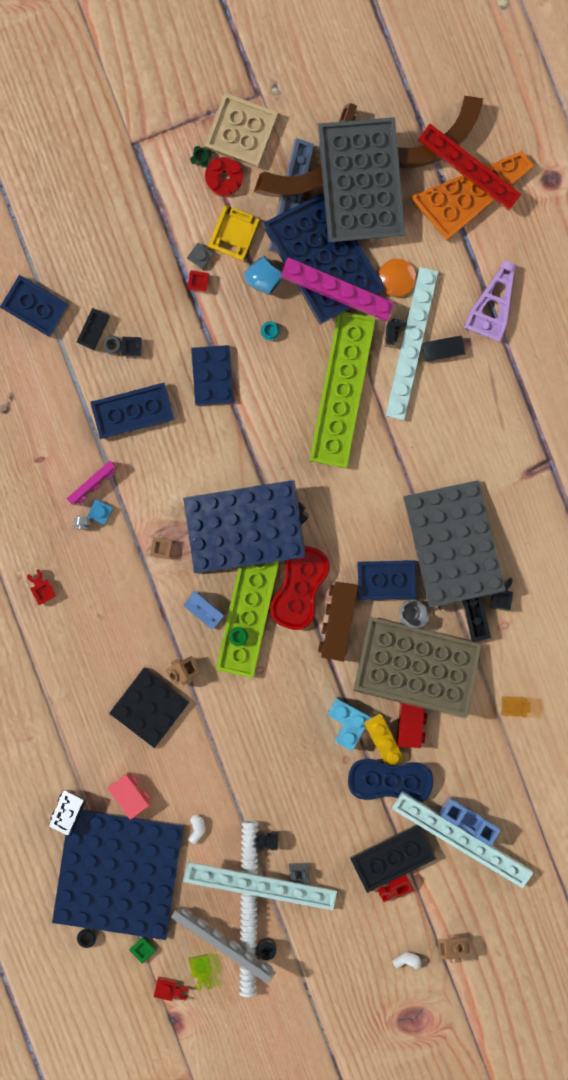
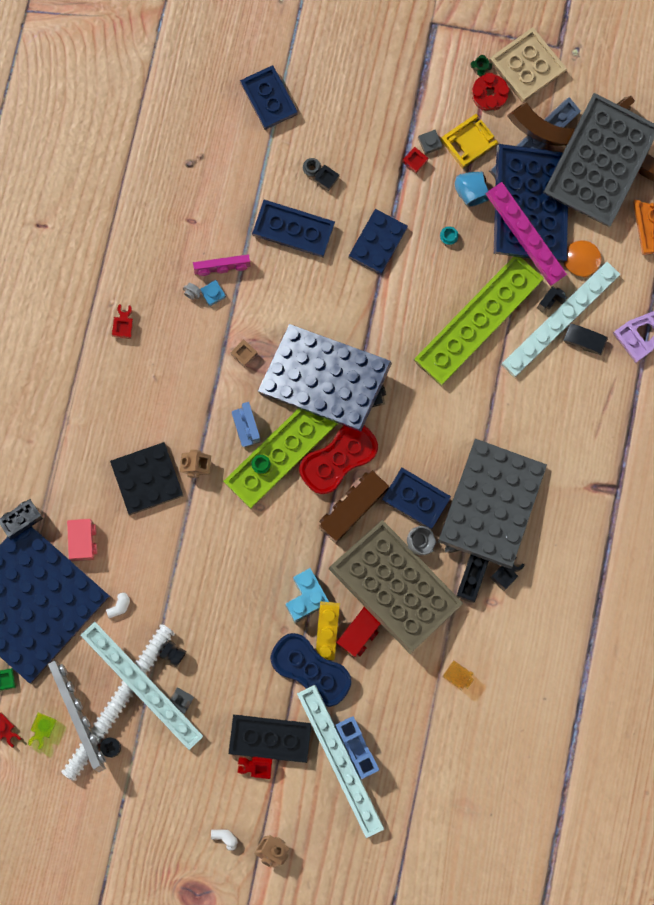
camera: 30 degrees right, 10 degrees down
(93, 329) = (304, 144): black plate -> none

